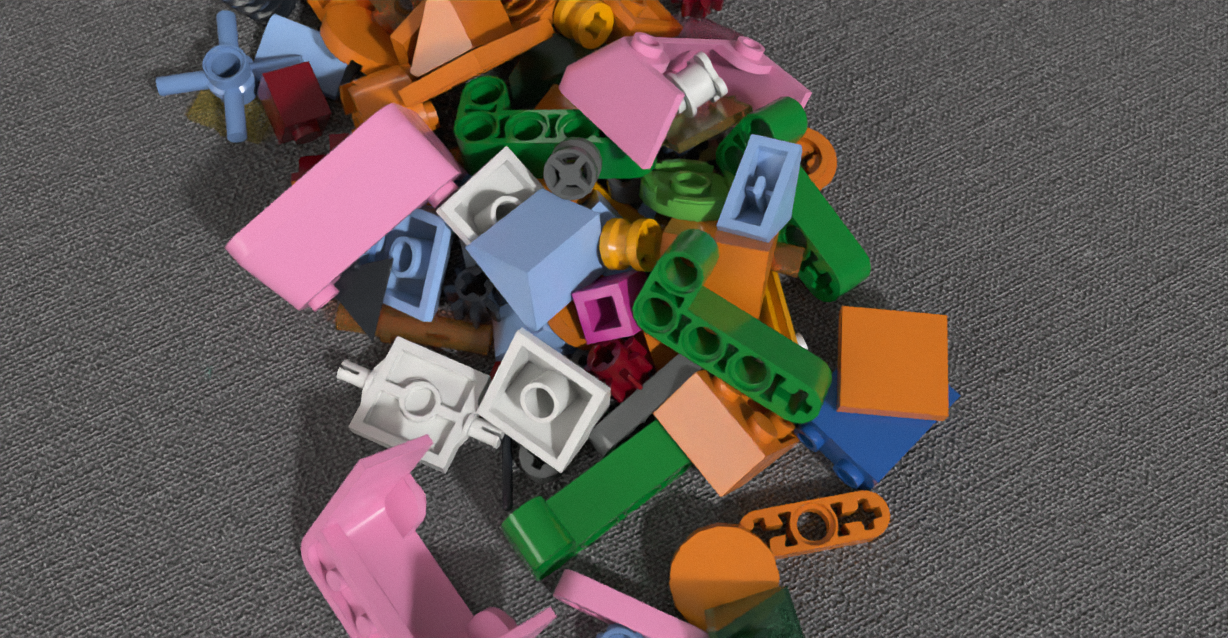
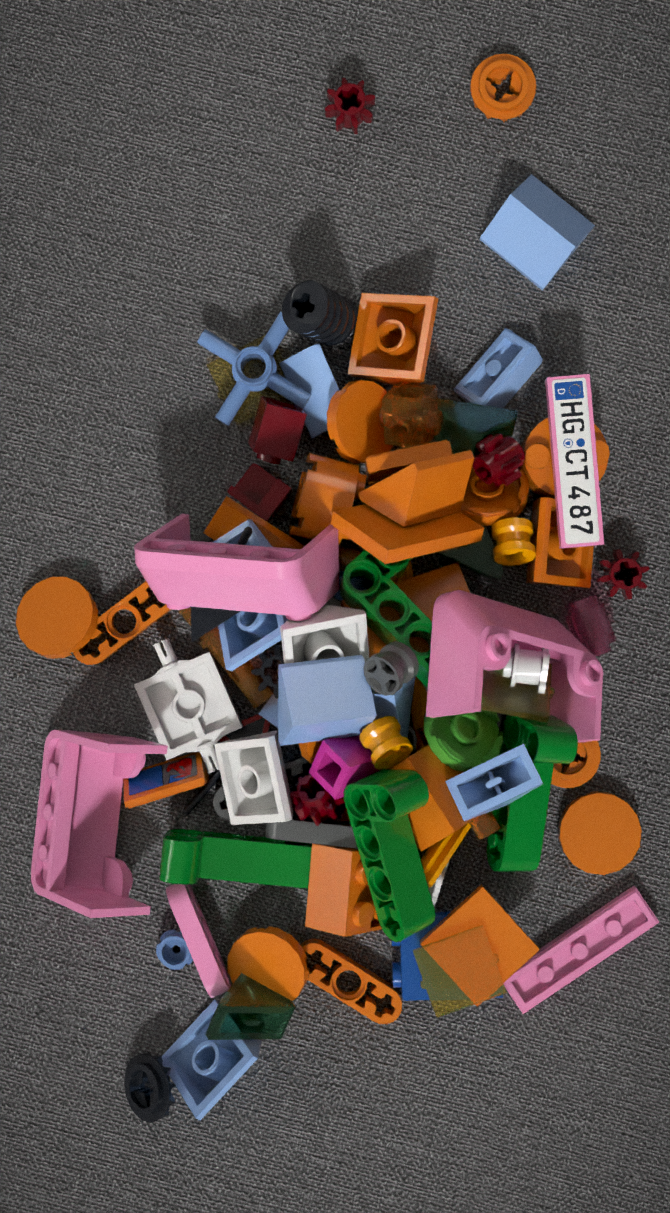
camera: 45 degrees right, 20 degrees up
(216, 431) = (56, 617): none -> orange tile
(266, 416) = (106, 648): none -> orange beam
(460, 494) = (165, 780): none -> slope
(889, 200) = (599, 833): none -> orange tile
(900, 396) = (459, 971): none -> clear yellow piece
(978, 310) = (580, 949): none -> bright pink tile

